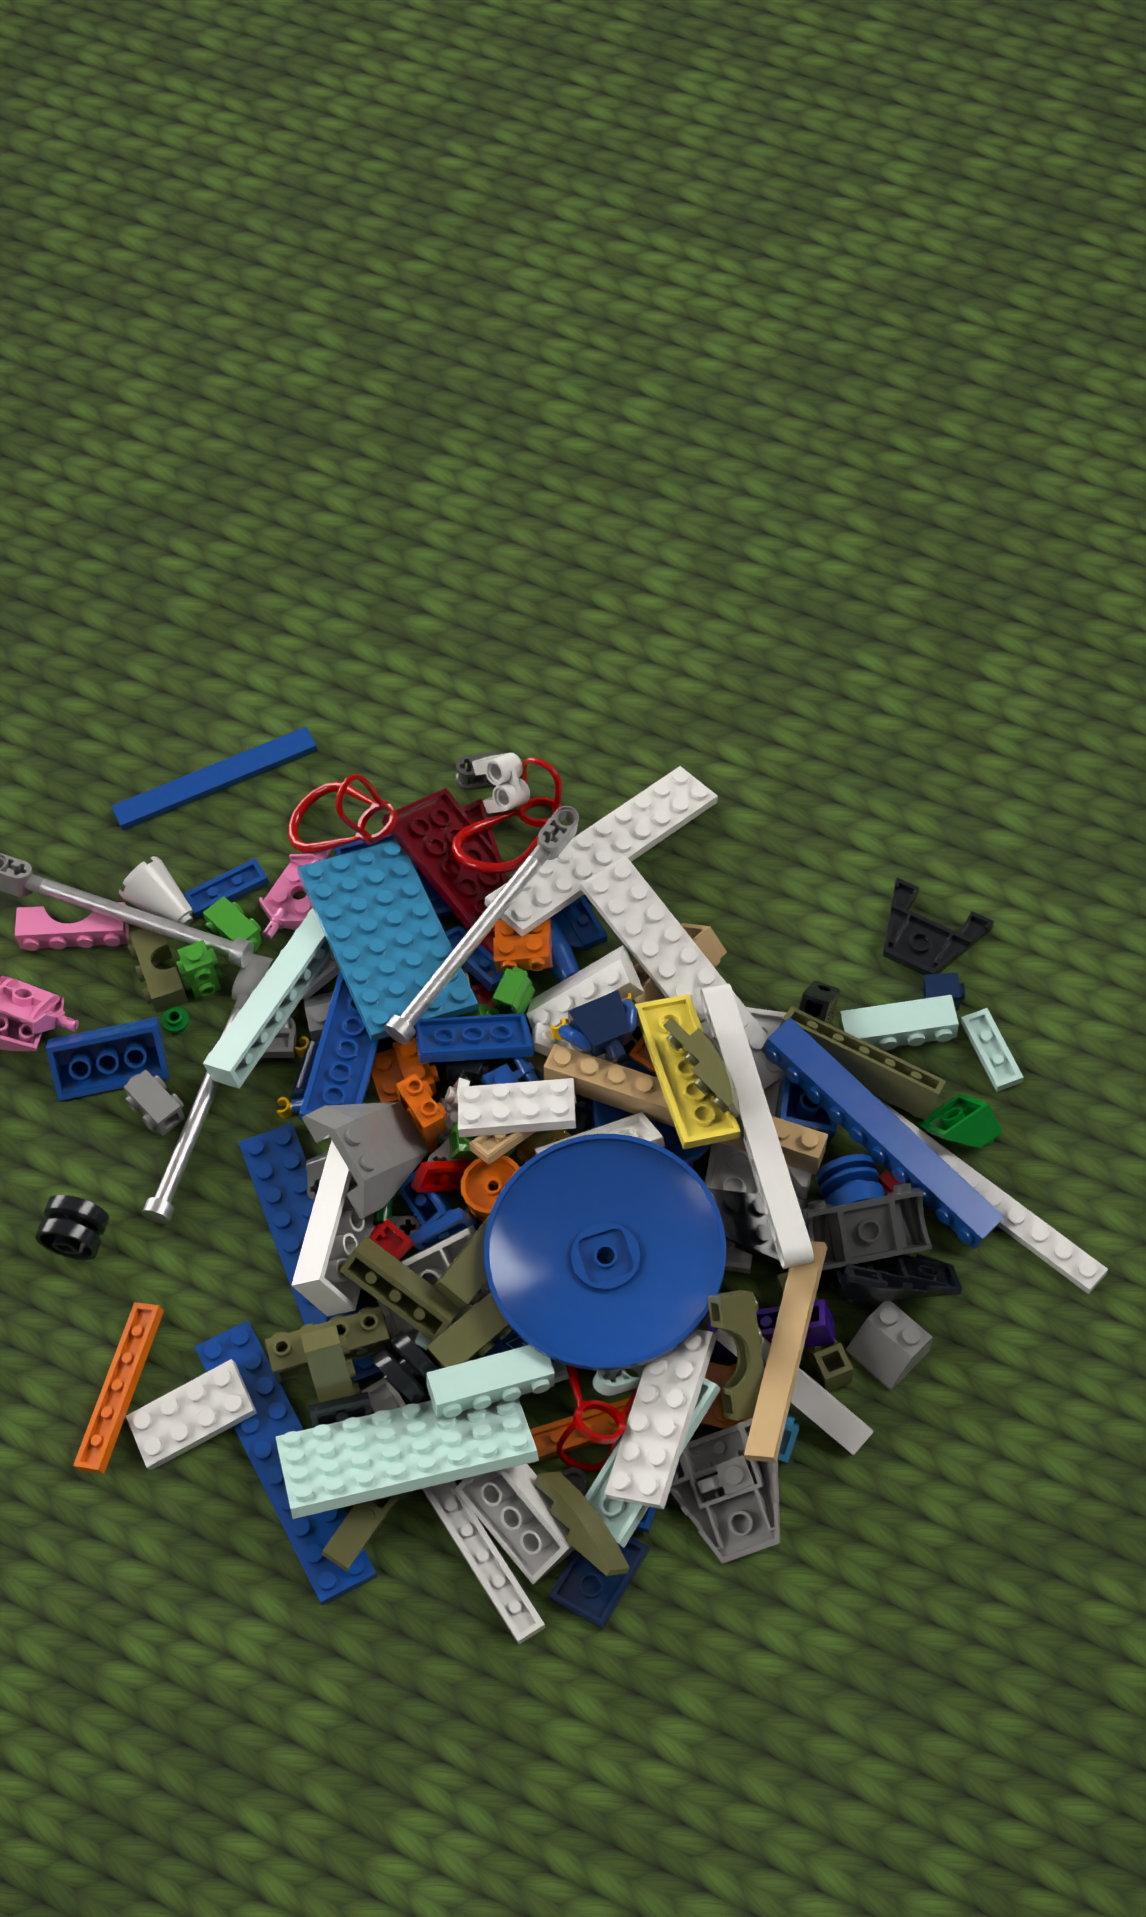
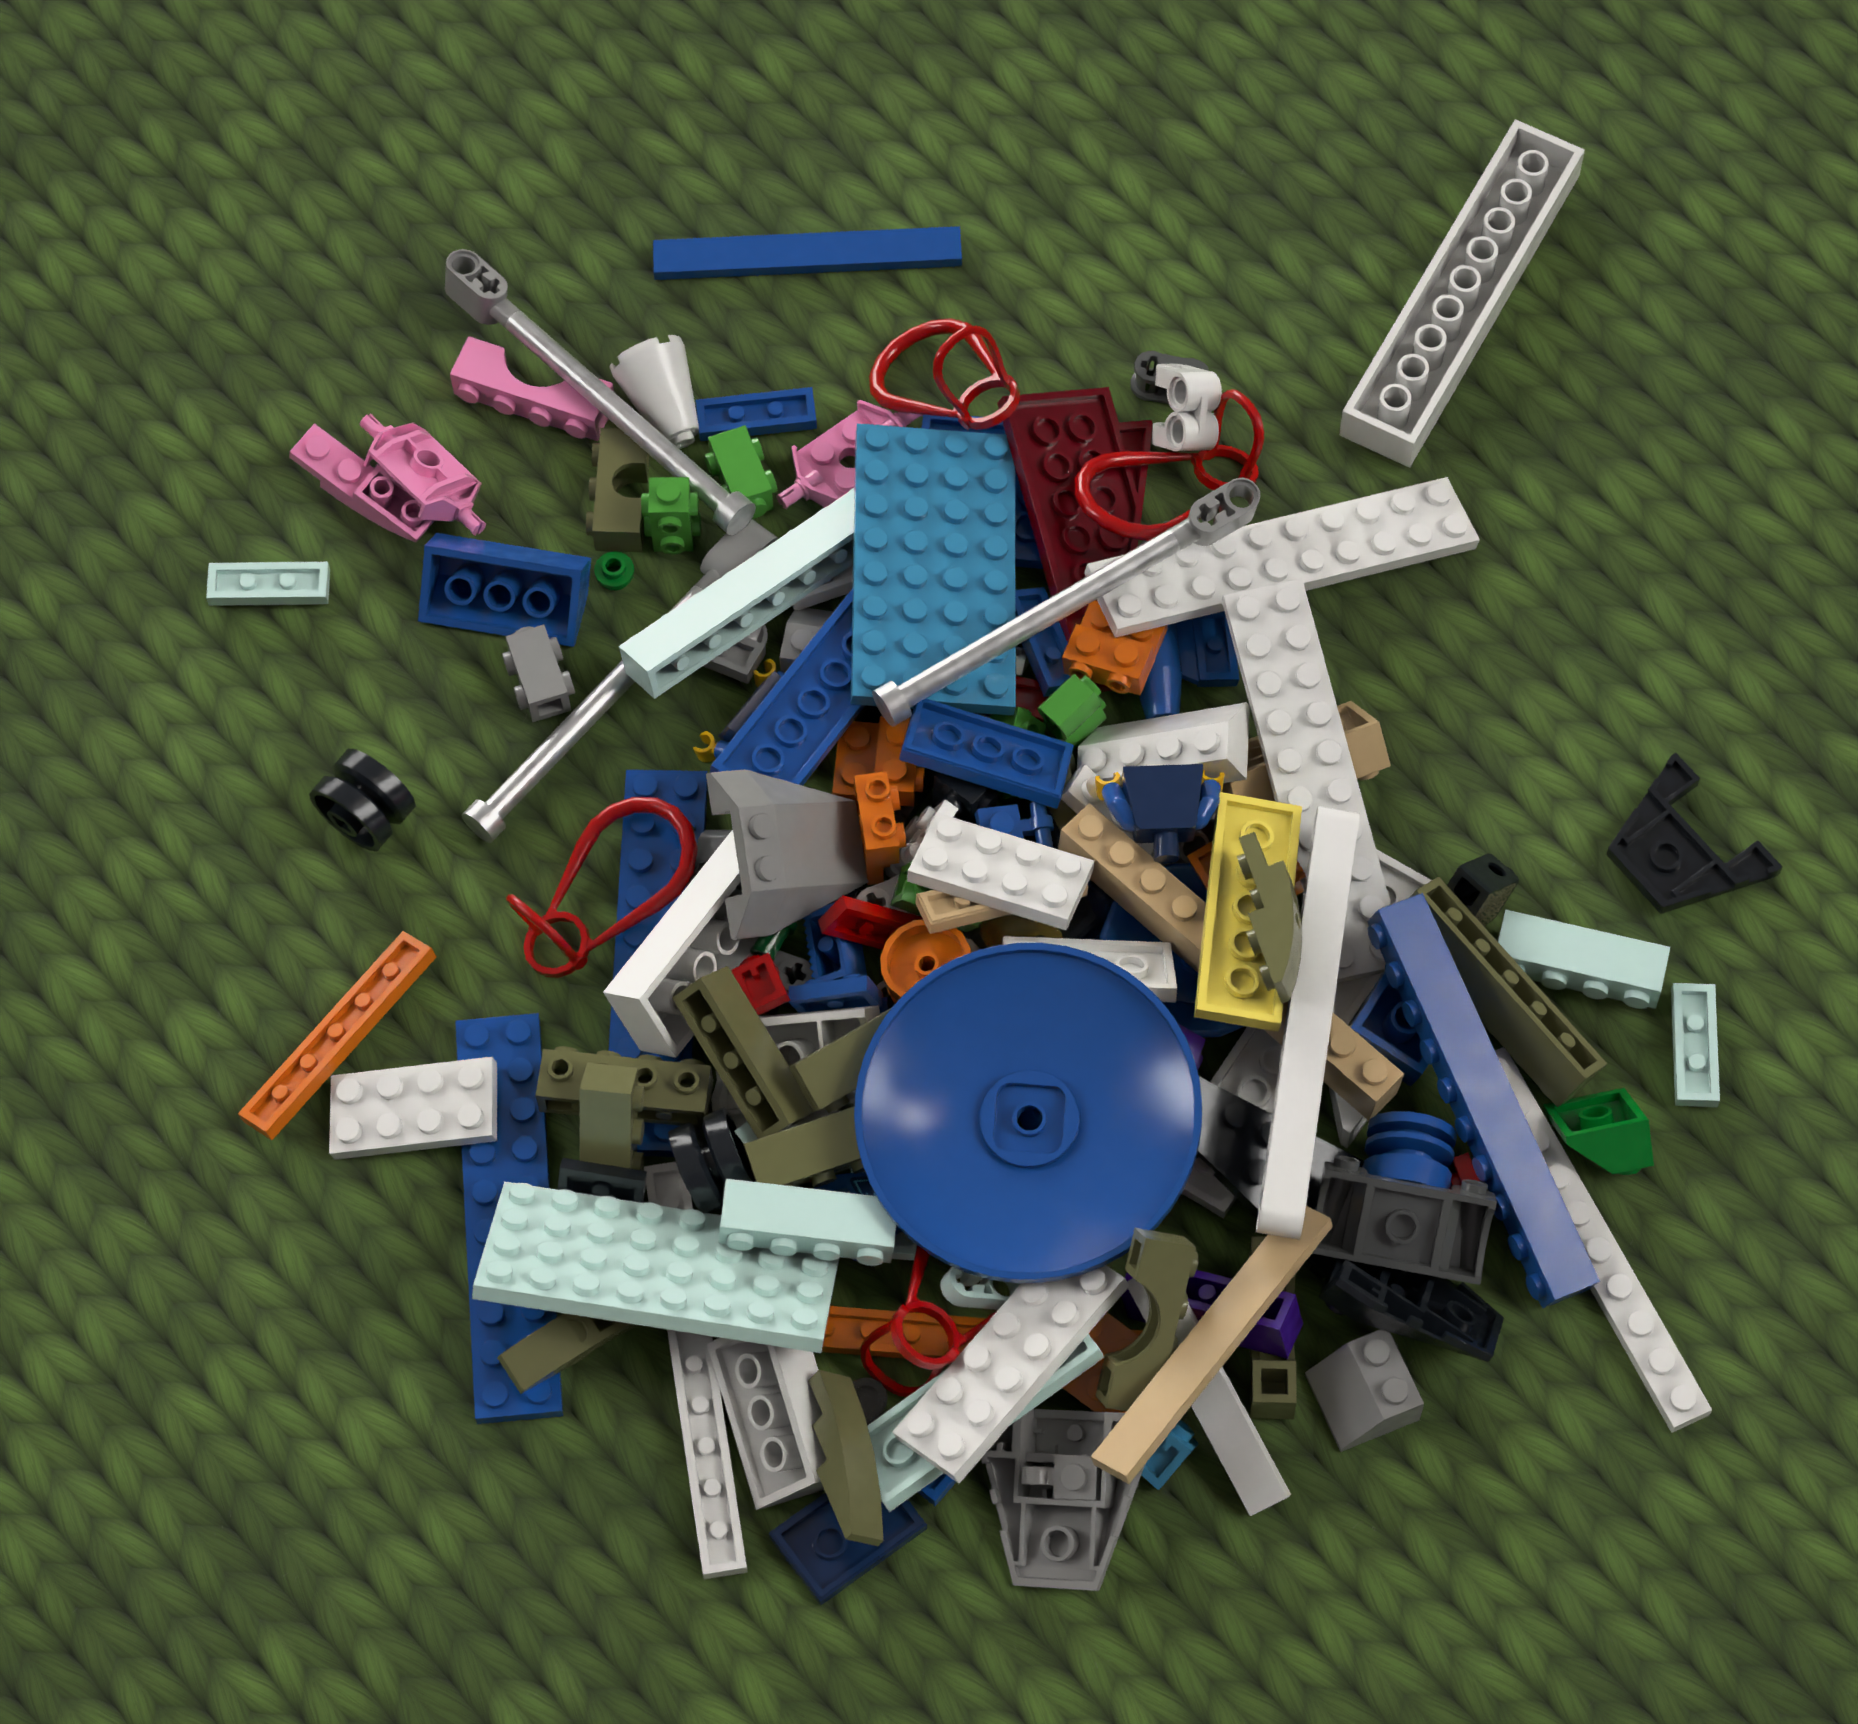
camera: 20 degrees right, 5 degrees up
(222, 1258) = (657, 902): none -> red animal
(639, 654) = (1461, 293): none -> white brick
(942, 985) = (1668, 930): dark blue brick -> none

